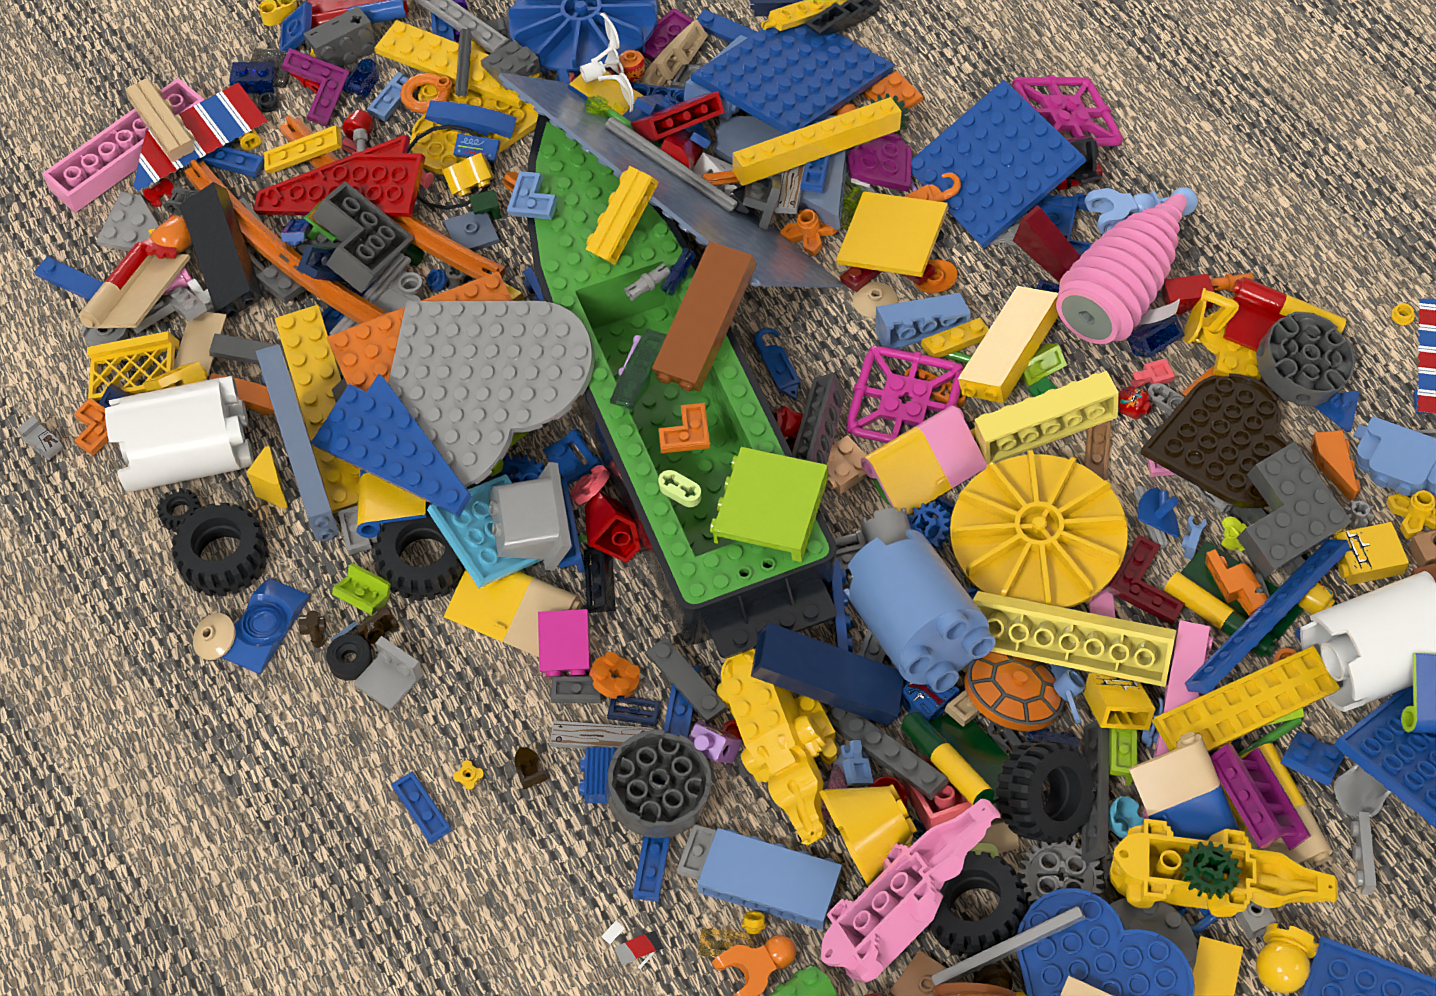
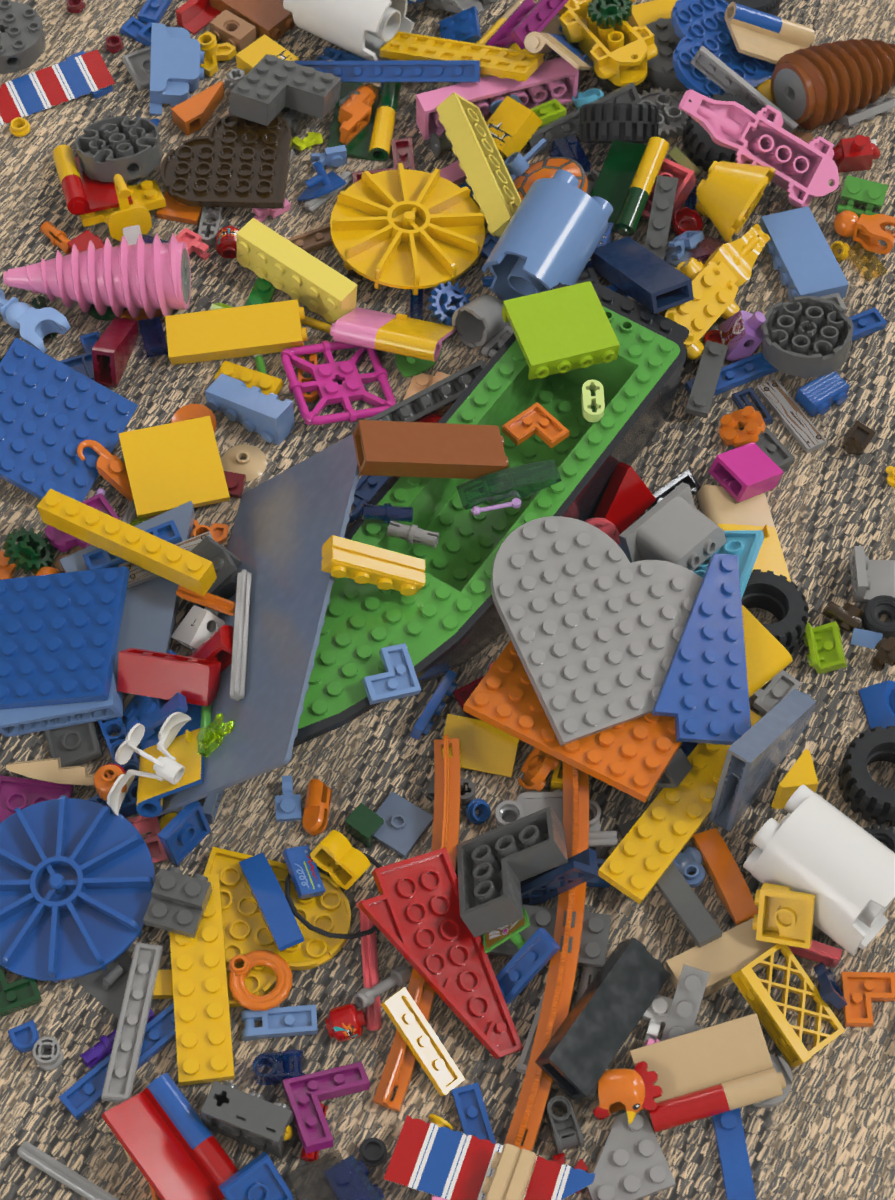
camera: 130 degrees left, 0 degrees up
(463, 62) = (204, 953): dark grey axle -> none

